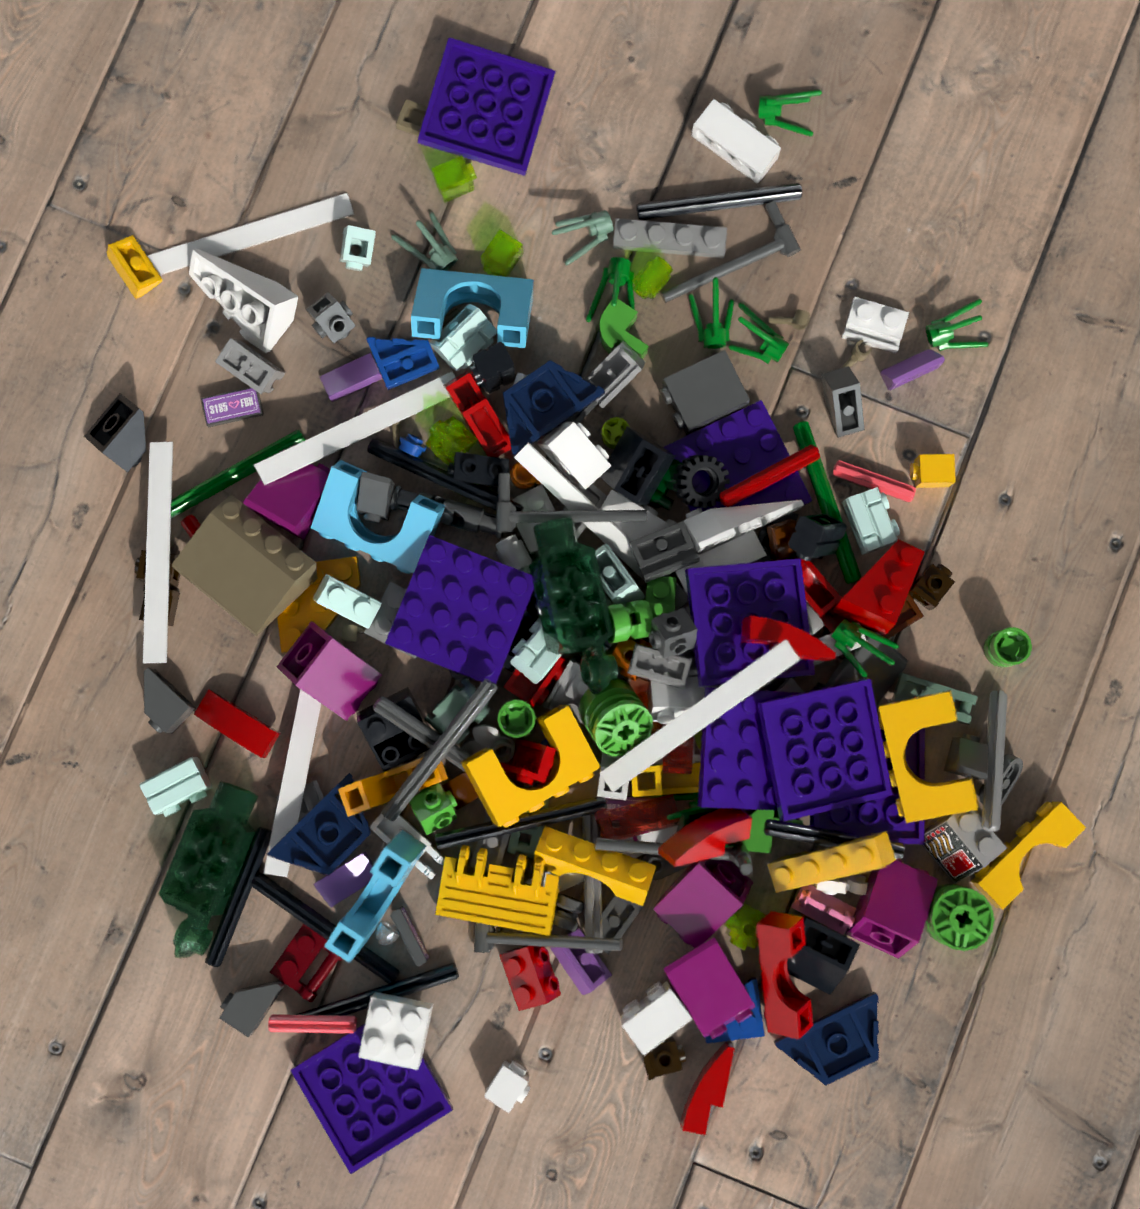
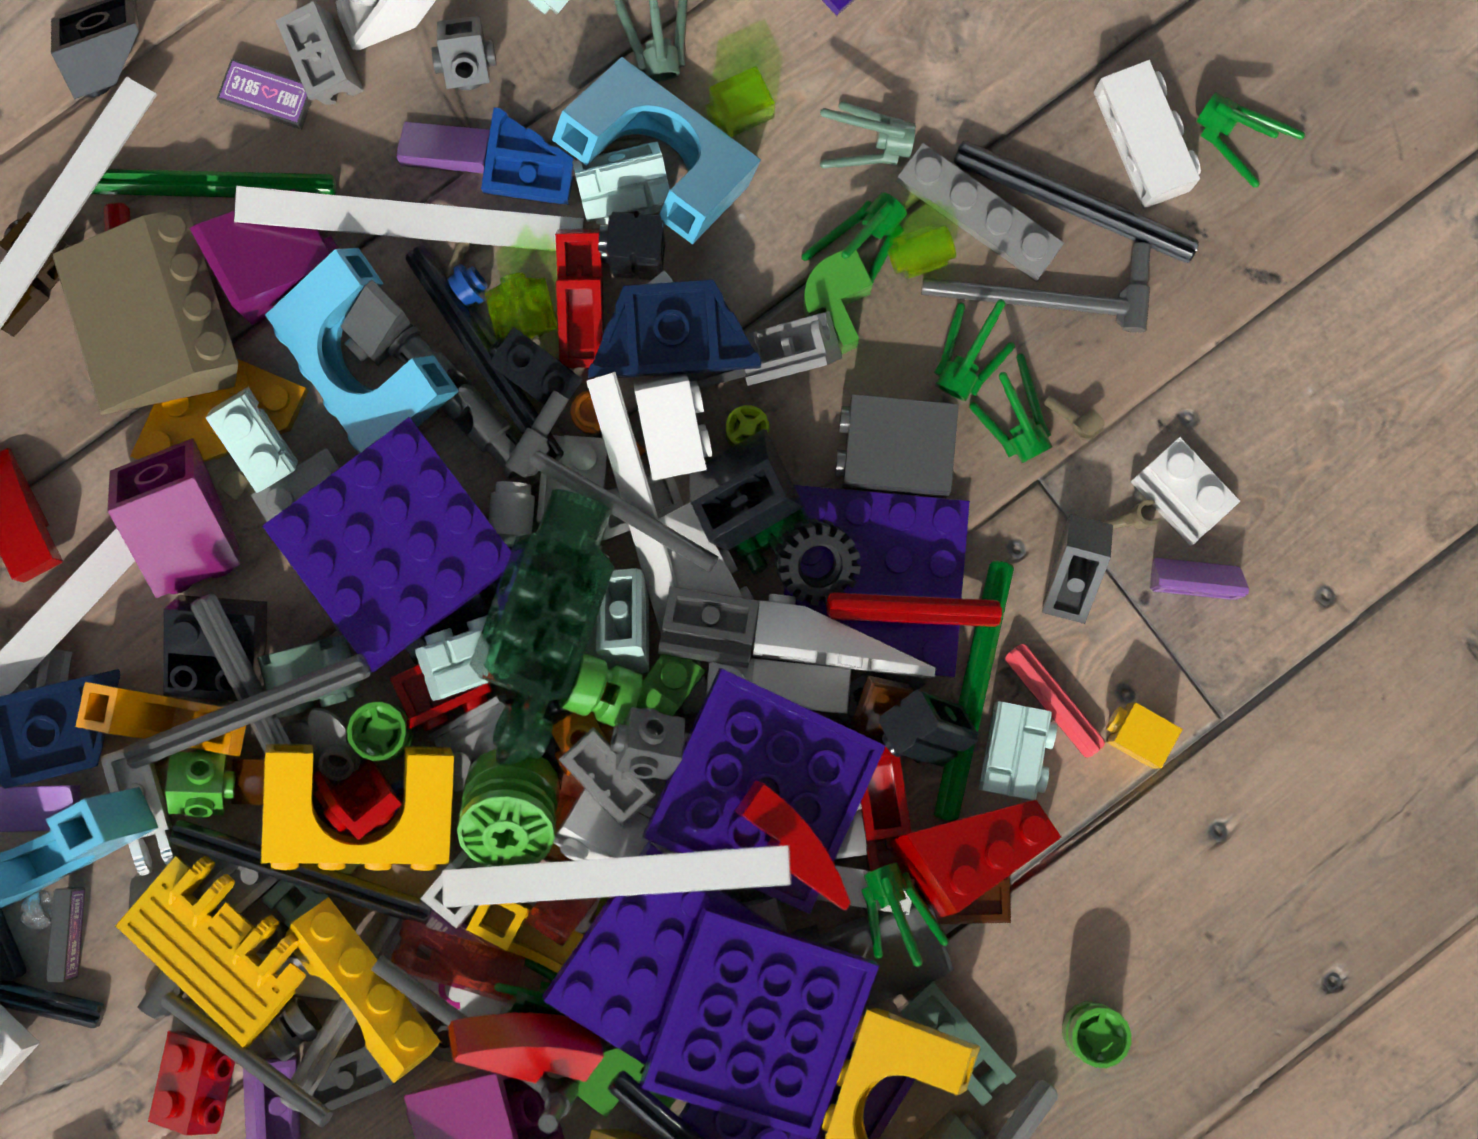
camera: 25 degrees right, 0 degrees up
(925, 593) = (1029, 888): dark brown brick -> none
(941, 332) = (1267, 555): green plant -> none

